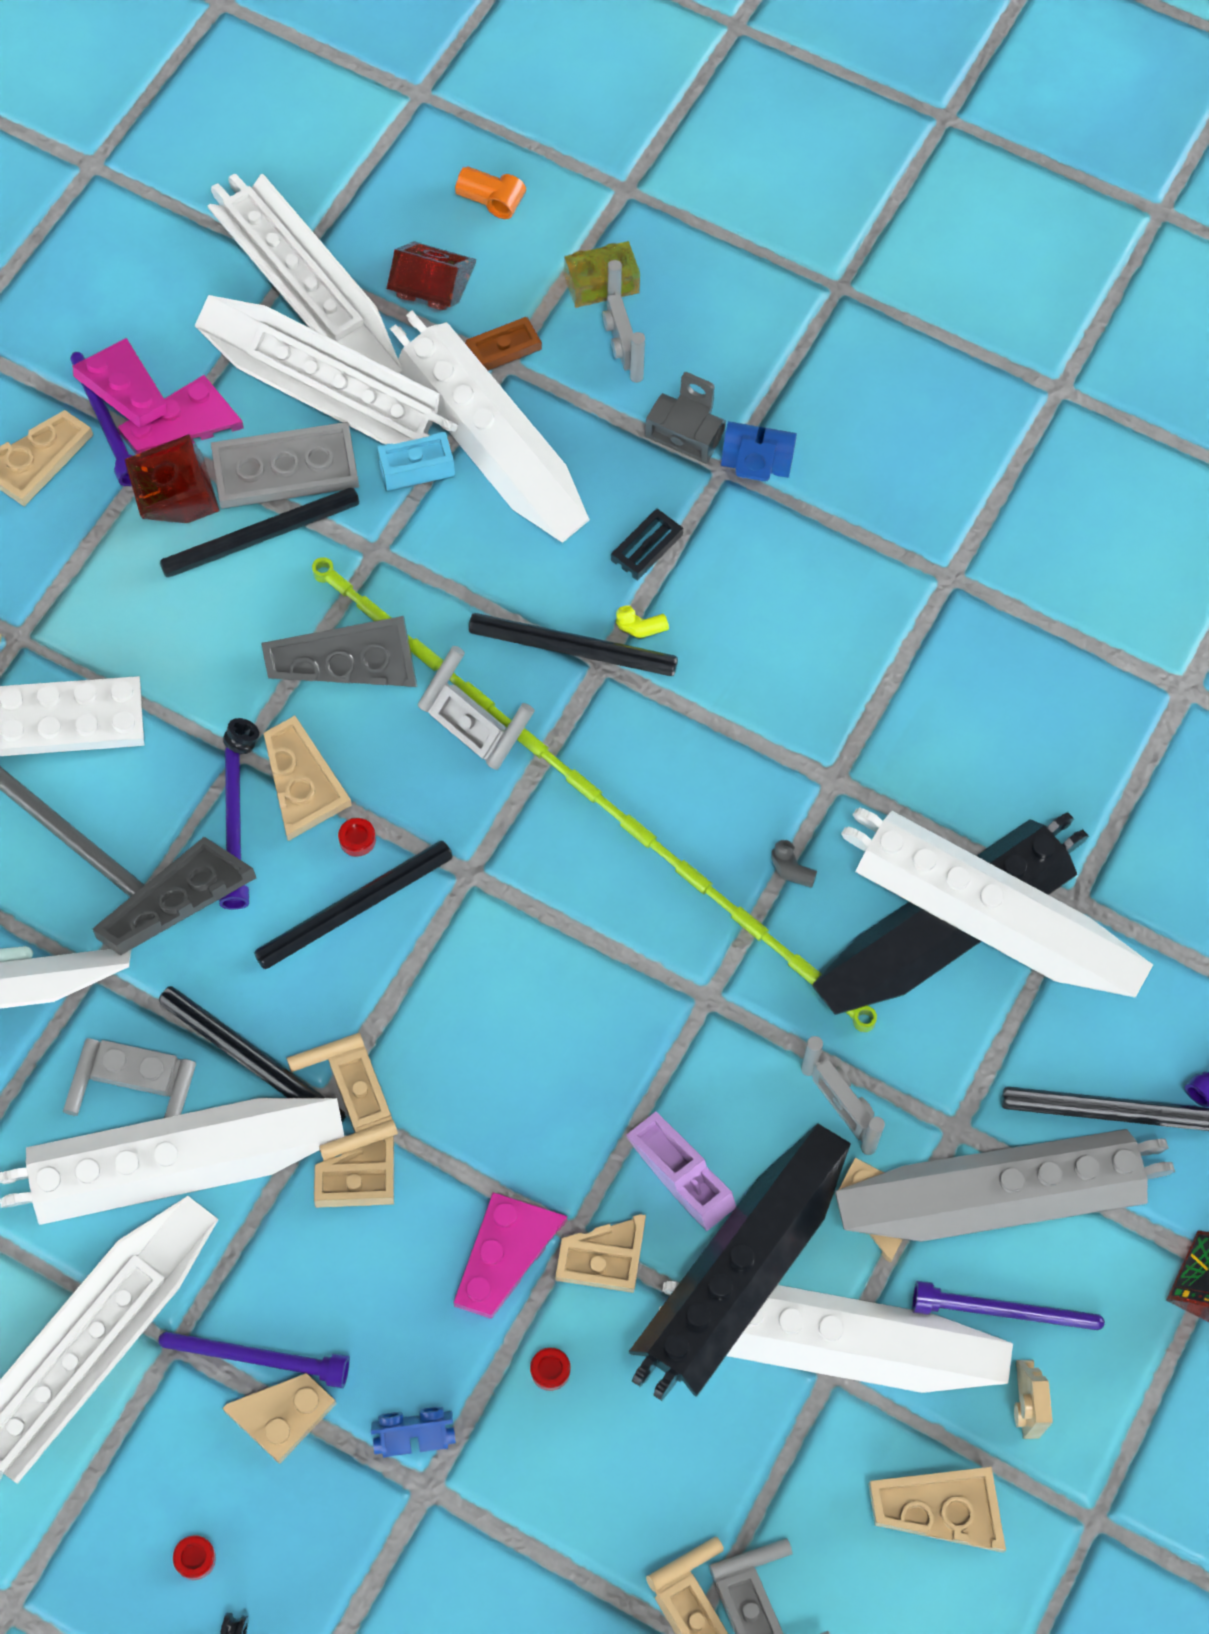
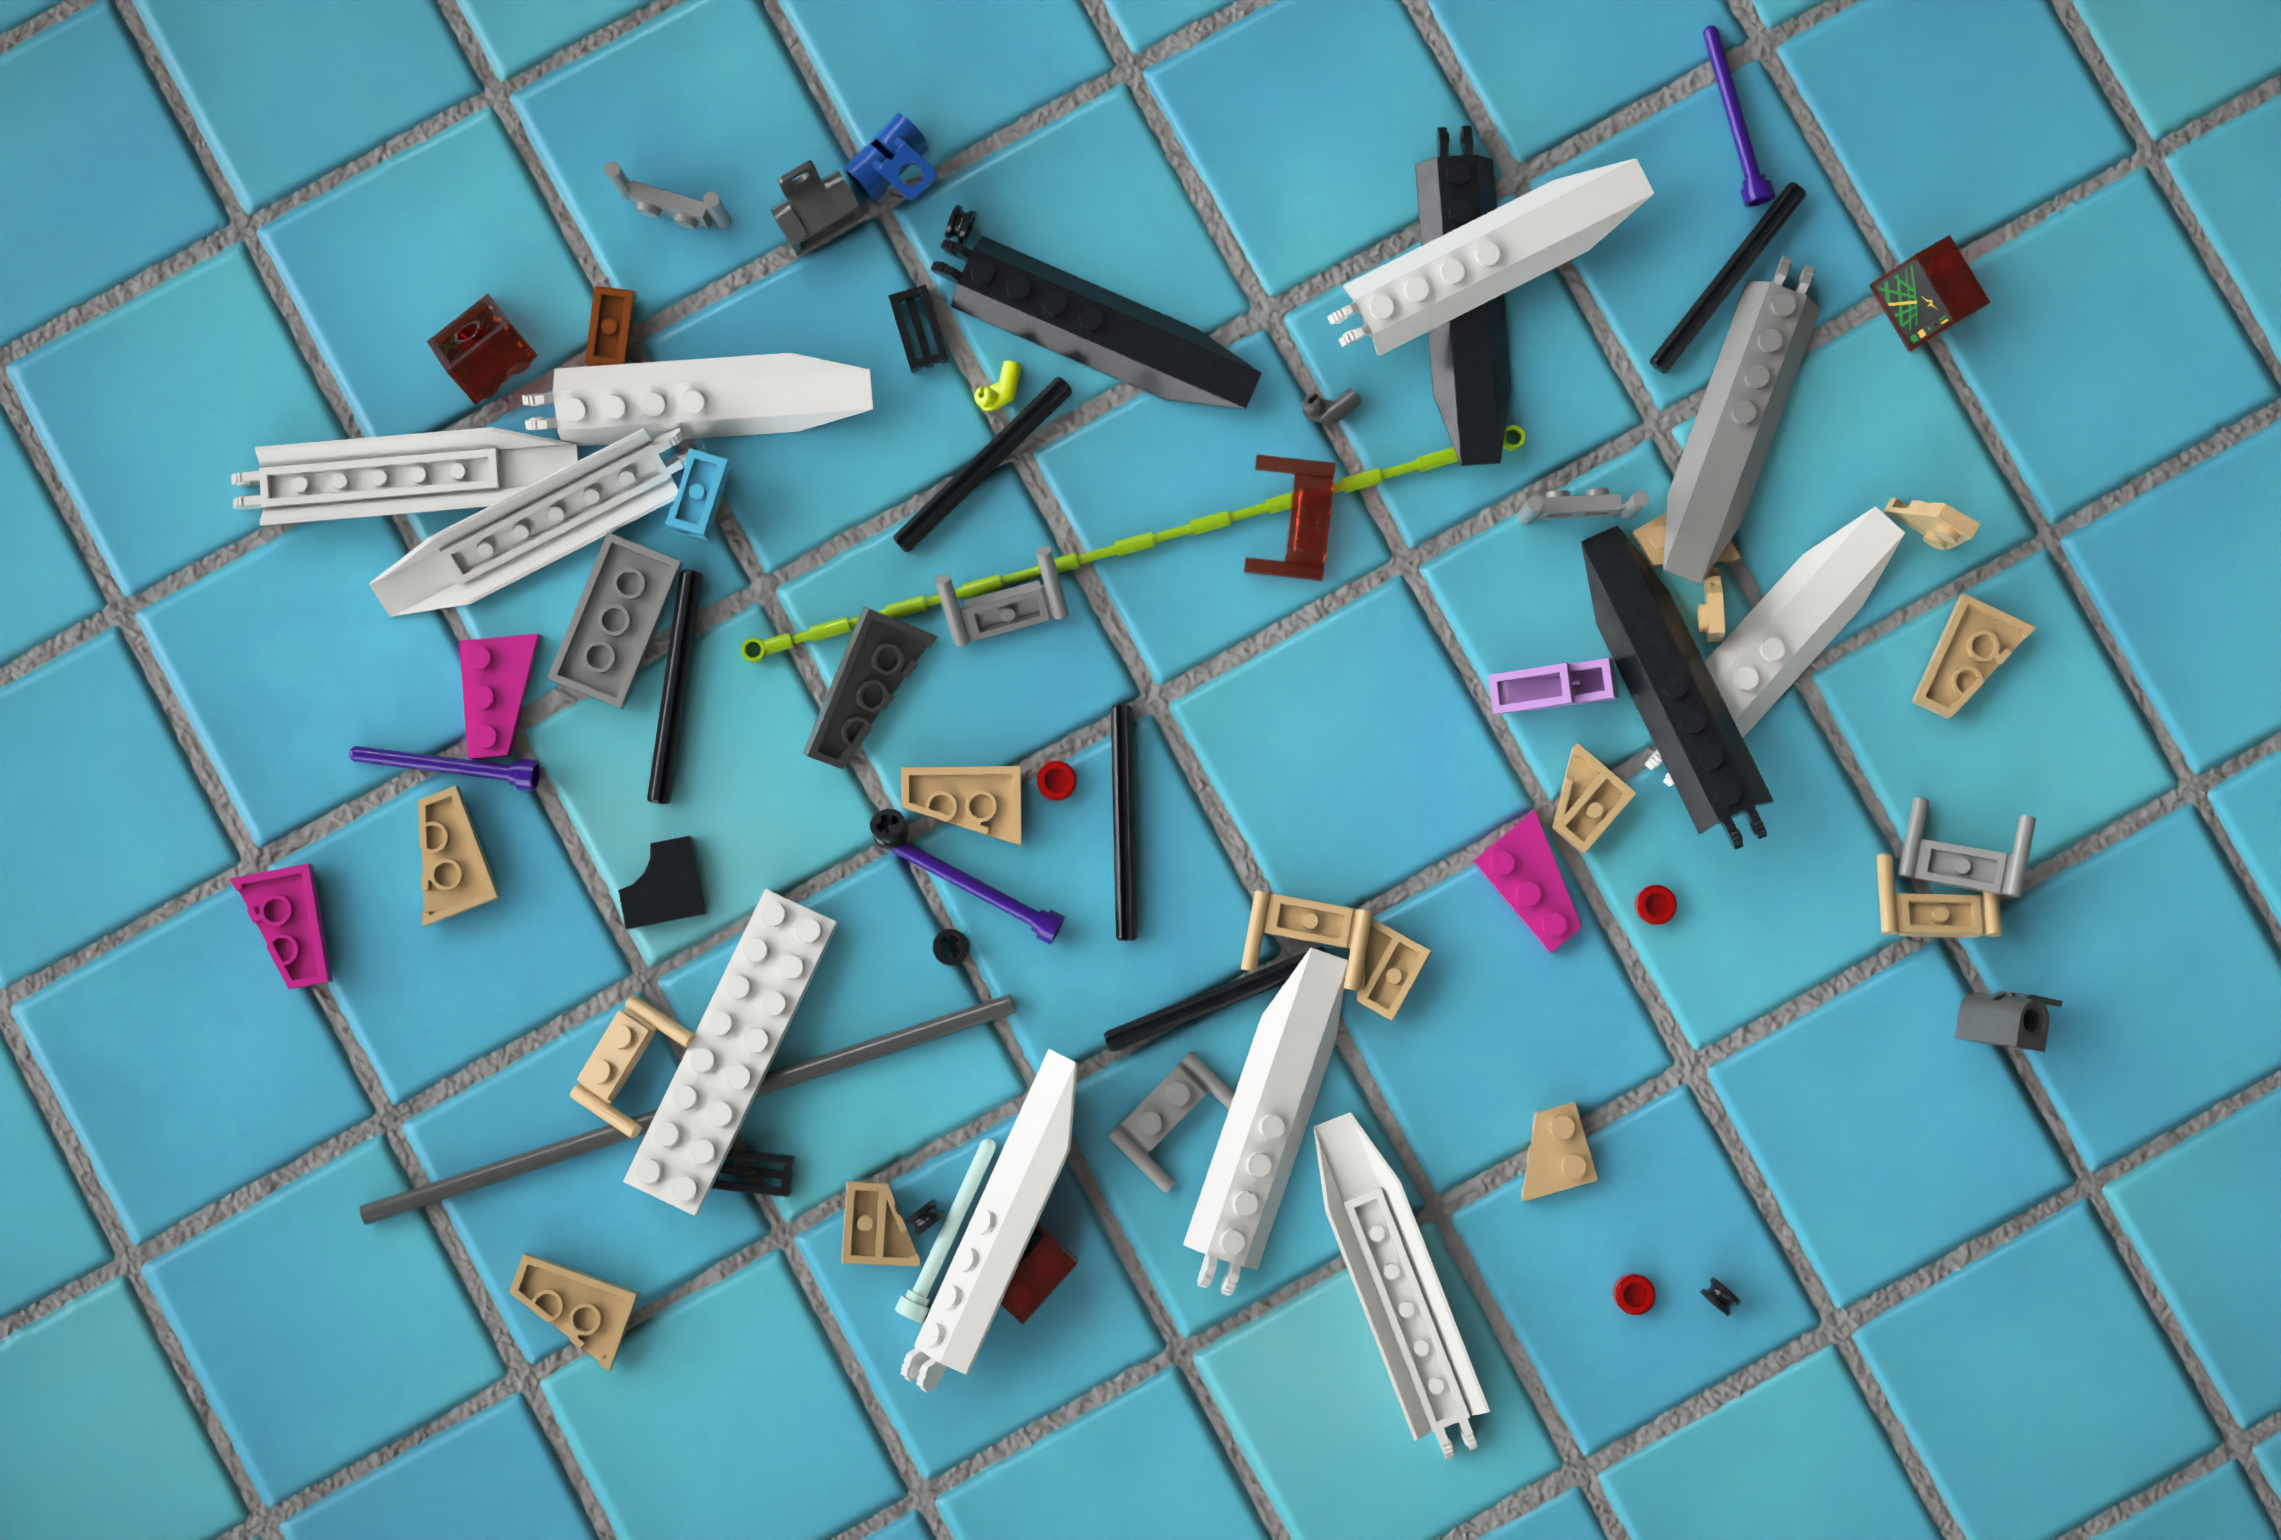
camera: 55 degrees left, 20 degrees up
(99, 612) = (667, 888): none -> black tile
(122, 382) = (423, 726): dark pink wing -> none
(165, 827) = (938, 949): none -> black bush
(172, 482) = (573, 742): clear red slope -> none
(177, 892) = (1022, 975): dark grey wing -> none
(329, 1369) = (1545, 1091): dark purple piece -> none
(427, 1426) = (1645, 1034): blue hinge -> none
(498, 194) = (426, 225): orange piece -> none
(594, 264) = (595, 182): clear yellow brick -> none
(687, 897) = (1307, 518): none -> clear red plate
(735, 663) = (1095, 326): none -> black hinge
(745, 525) = (960, 224): none -> black bush
(831, 1253) = (1711, 614): none -> tan wing
(930, 1298) = (1792, 551): dark purple piece -> none

